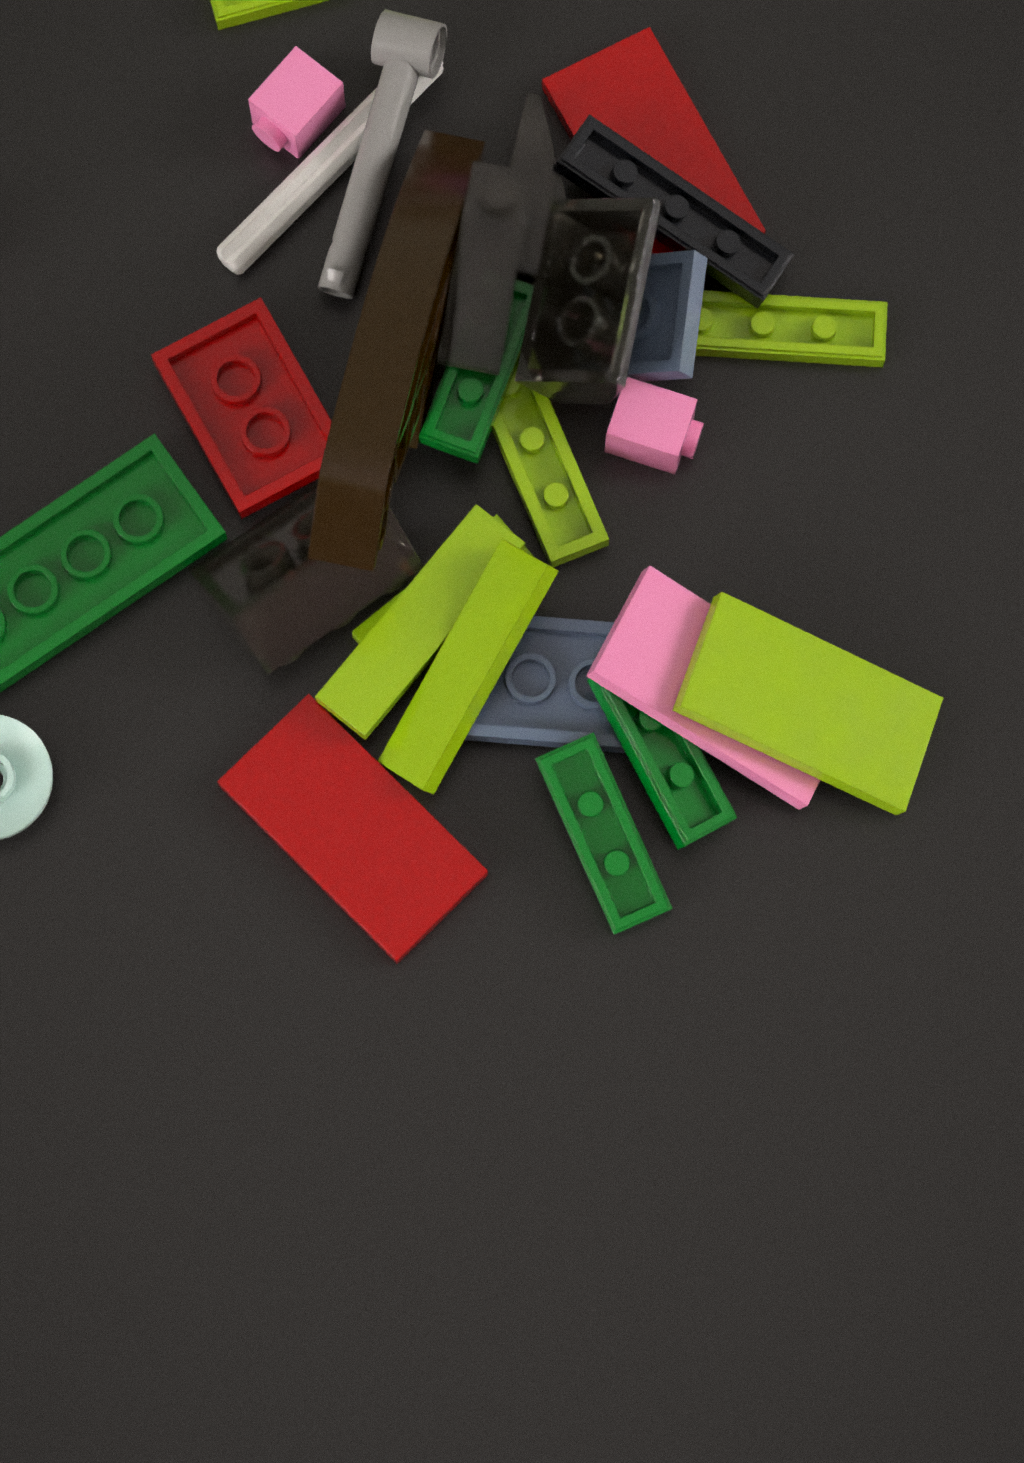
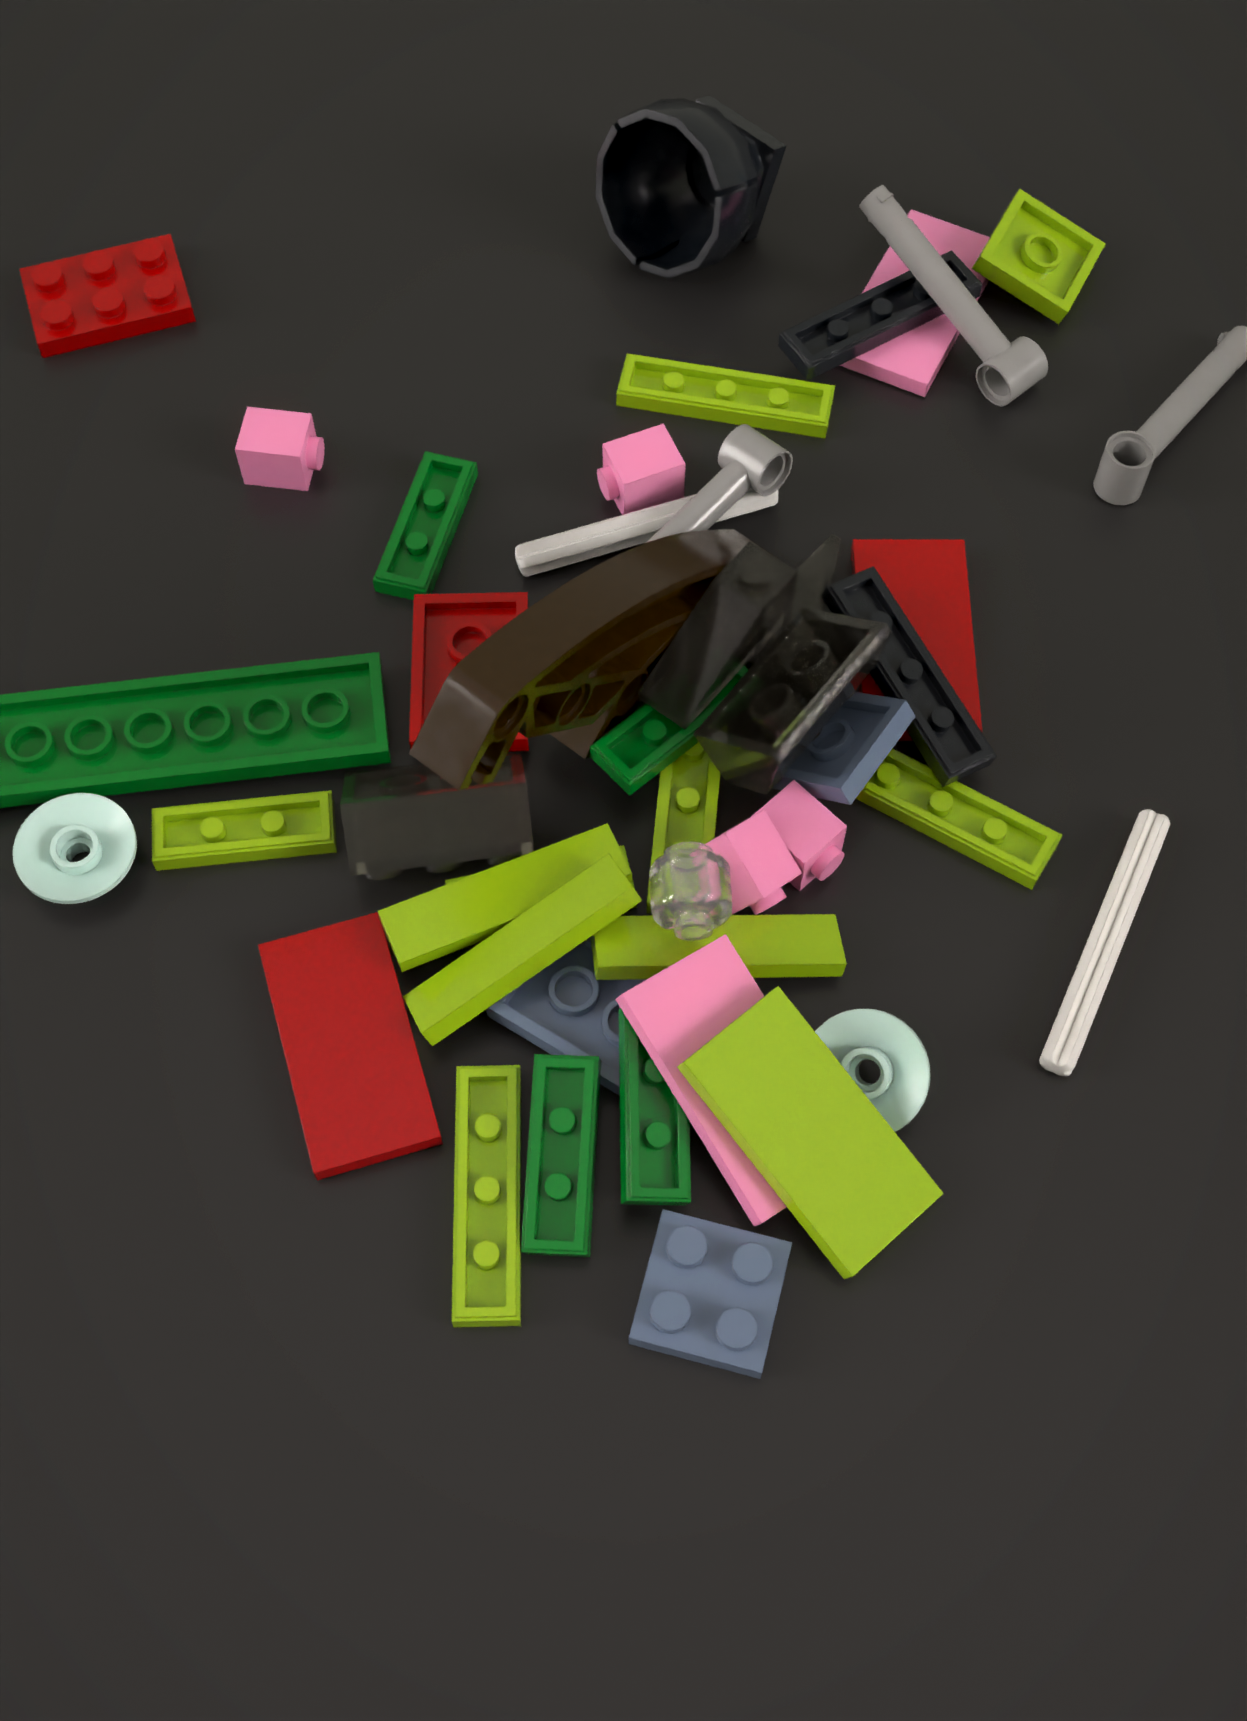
camera: 30 degrees right, 15 degrees down
(109, 267) = (425, 526): none -> green tile
(129, 676) = (243, 830): none -> lime tile
(554, 898) = (487, 1197): none -> lime tile
(594, 537) = (690, 890): none -> clear head
(624, 481) = (756, 862): none -> bright pink brick
(677, 546) = (766, 944): none -> lime tile
(791, 885) = (710, 1293): none -> sand blue plate
(860, 606) = (894, 1048): none -> light aqua dish
(972, 387) = (1104, 943): none -> white axle

